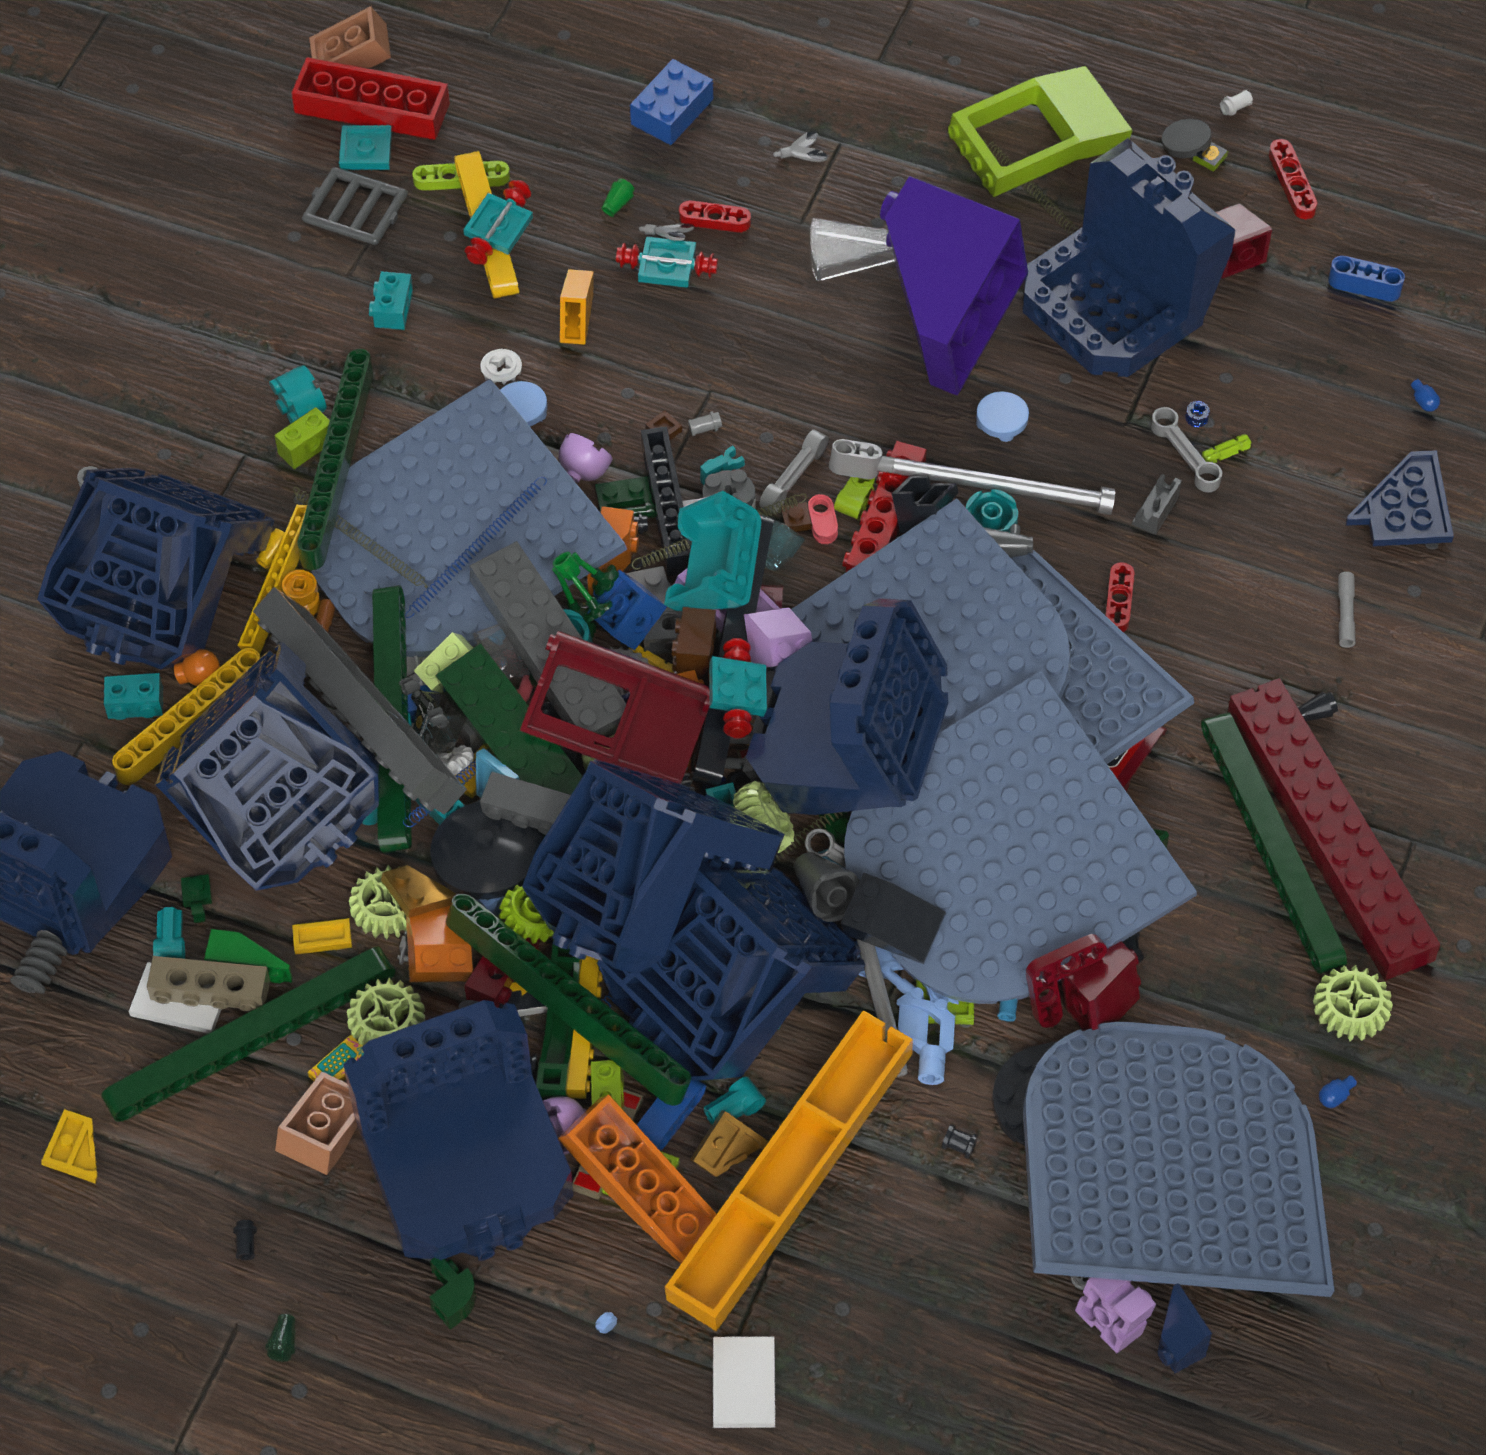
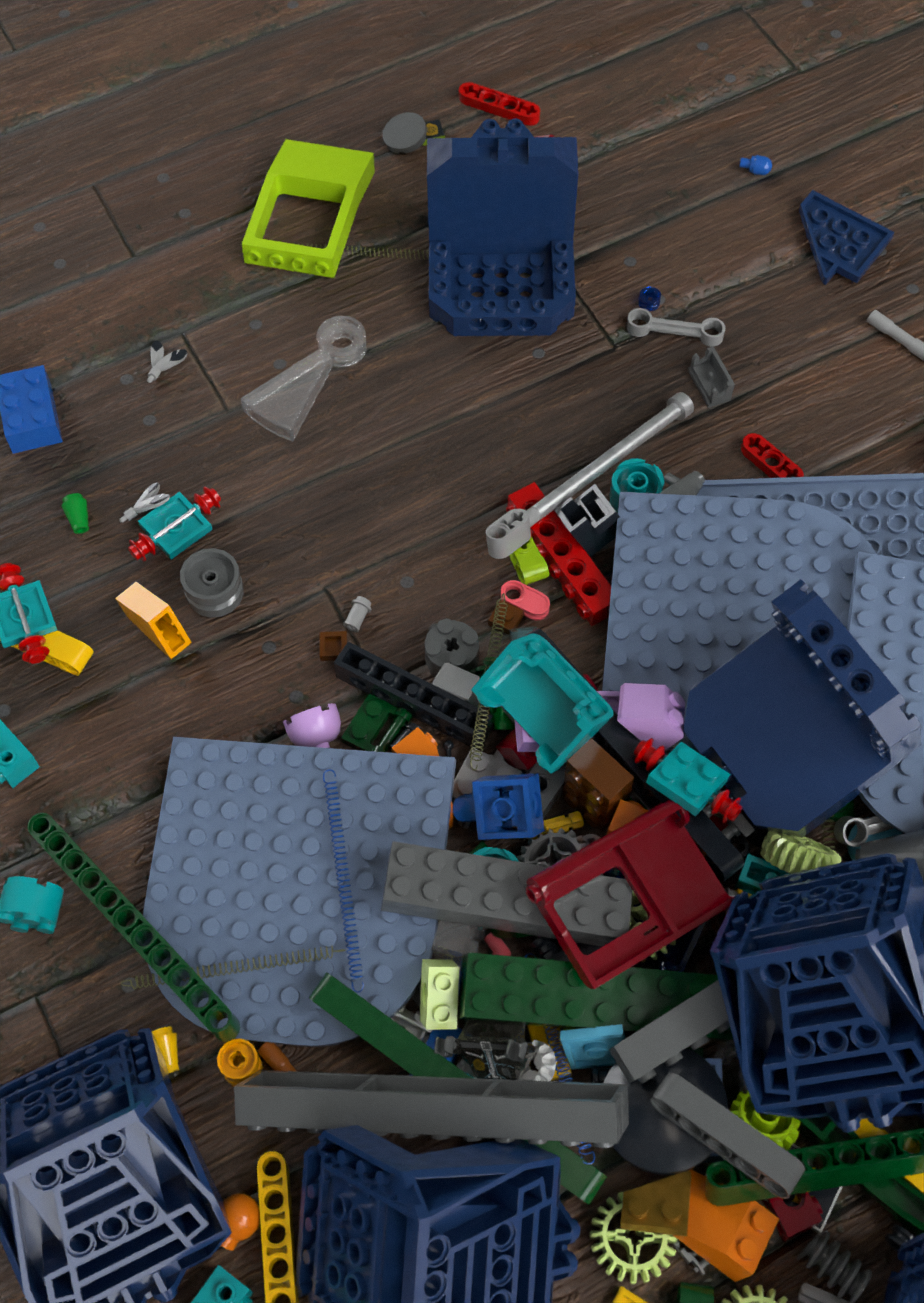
camera: 50 degrees left, 5 degrees up
(283, 563) = (204, 1071): yellow piece -> none
(302, 438) = (75, 933): lime brick -> none
(491, 881) = (728, 1135): none -> dark grey beam
(496, 359) = (158, 709): white gear -> none
(527, 400) = (208, 724): light blue tile -> none
(567, 566) = (467, 803): plant -> none
(638, 316) = (212, 582): none -> dark grey wheel
(721, 463) = (410, 639): teal plate -> none
(733, 212) = (175, 445): red beam -> none
(812, 448) = (474, 610): light grey piece -> none
(956, 274) = (407, 345): dark purple slope -> none
(1002, 415) = (540, 413): light blue tile -> none
(1227, 449) = (697, 303): lime axle -> none
(1232, 104) = (402, 88): white pin -> none
(1366, 278) = (627, 124): blue beam -> none

